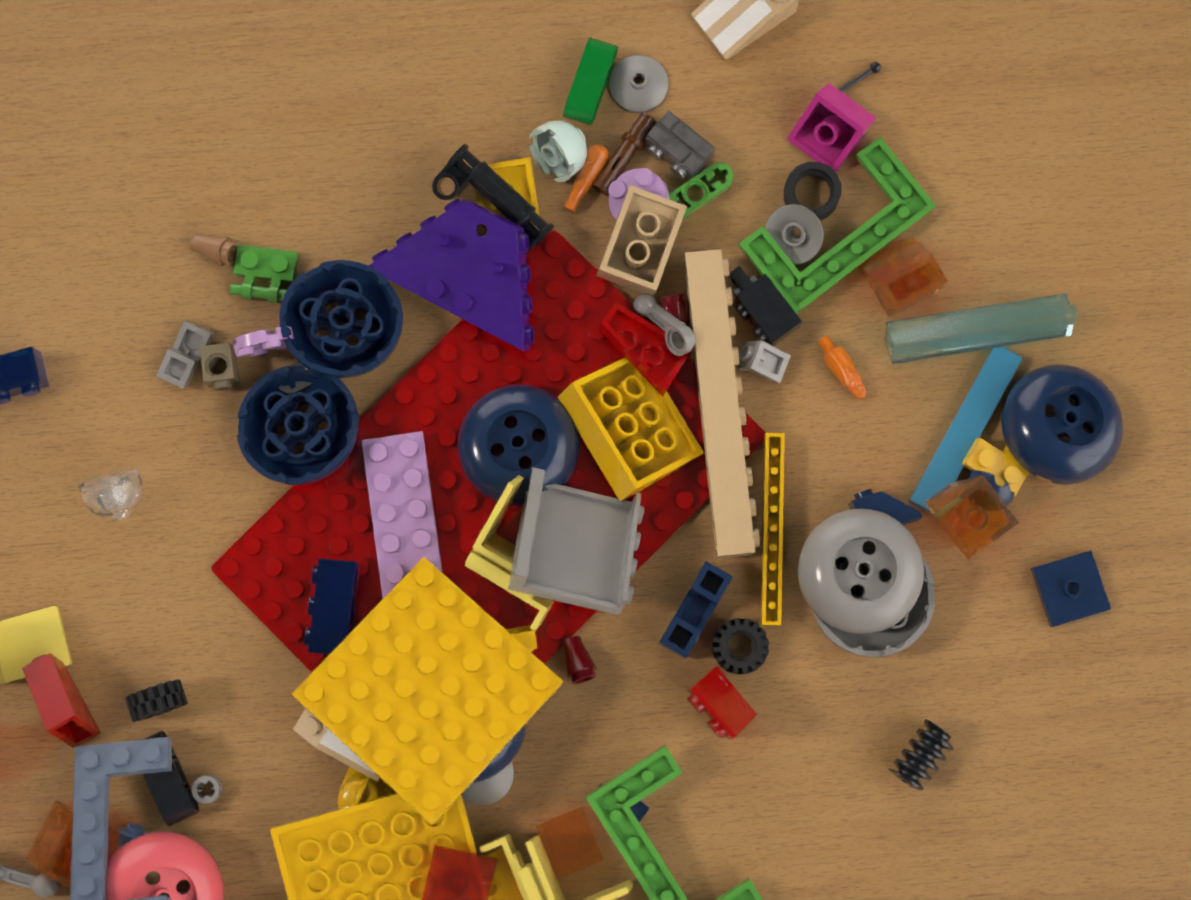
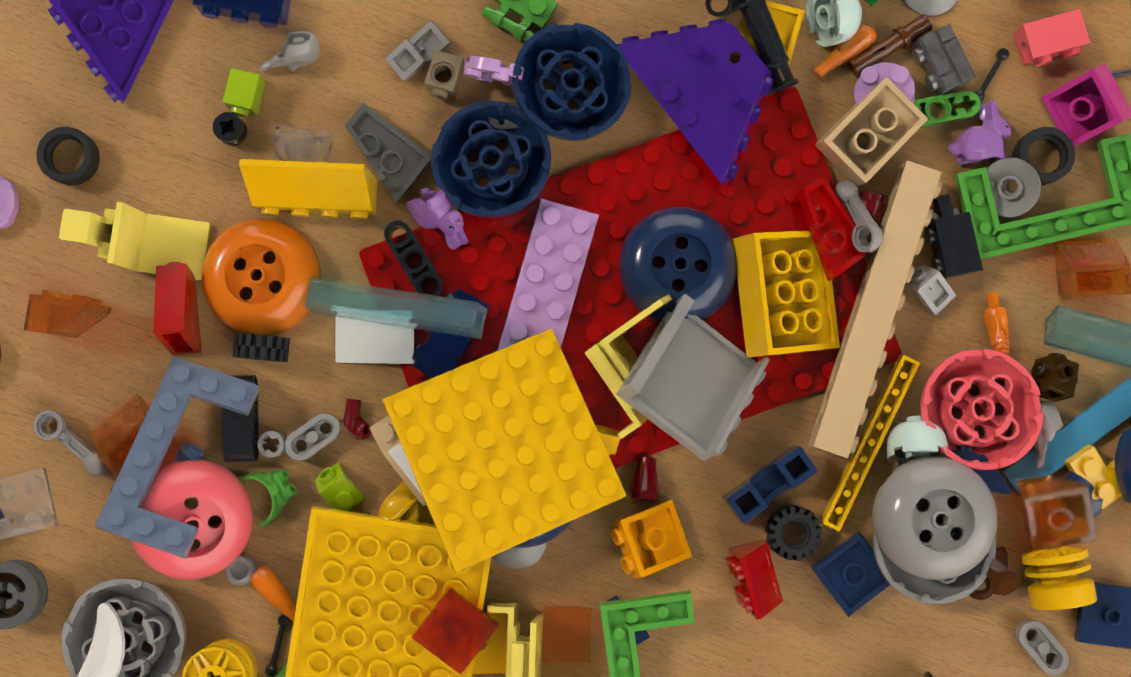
camera: 20 degrees right, 5 degrees up
(35, 467) = (244, 92): none -> lime brick
(43, 510) = (234, 134): none -> black wheel
(69, 405) = (298, 50): none -> light grey piece
(138, 528) = (310, 188): none -> yellow slope
(145, 665) = (265, 311): none -> orange brick
(198, 460) = (389, 151): none -> dark grey wing
(233, 829) = (278, 487): none -> bright green helmet
(243, 763) = (313, 435): none -> light grey plate
(253, 546) = (407, 248): none -> black beam
(261, 642) = (372, 342): none -> white sticker
(267, 497) = (435, 212): none -> medium lavender animal
(268, 603) = (396, 308): none -> clear light blue brick
(277, 732) = (354, 422): none -> dark red arm
(289, 802) = (338, 488): none -> lime bracket
(607, 714) = (650, 540): none -> light orange plate
(732, 116) = (1001, 55): none -> black hinge
(749, 204) = (983, 141): none -> medium lavender animal
(770, 81) = (1051, 37): none -> coral brick
(811, 660) = (851, 574): none -> dark blue plate
(812, 506) = (915, 440): none -> light aqua cylinder
(866, 417) = (1000, 382): none -> coral brick
(914, 390) = (1055, 377): none -> dark brown brick
(924, 439) = (1051, 424): none -> light grey piece
(948, 601) = (998, 579): none -> reddish brown plate
(1003, 573) = (1059, 578): none -> yellow wheel
(1020, 647) = (1040, 645): none -> light grey plate

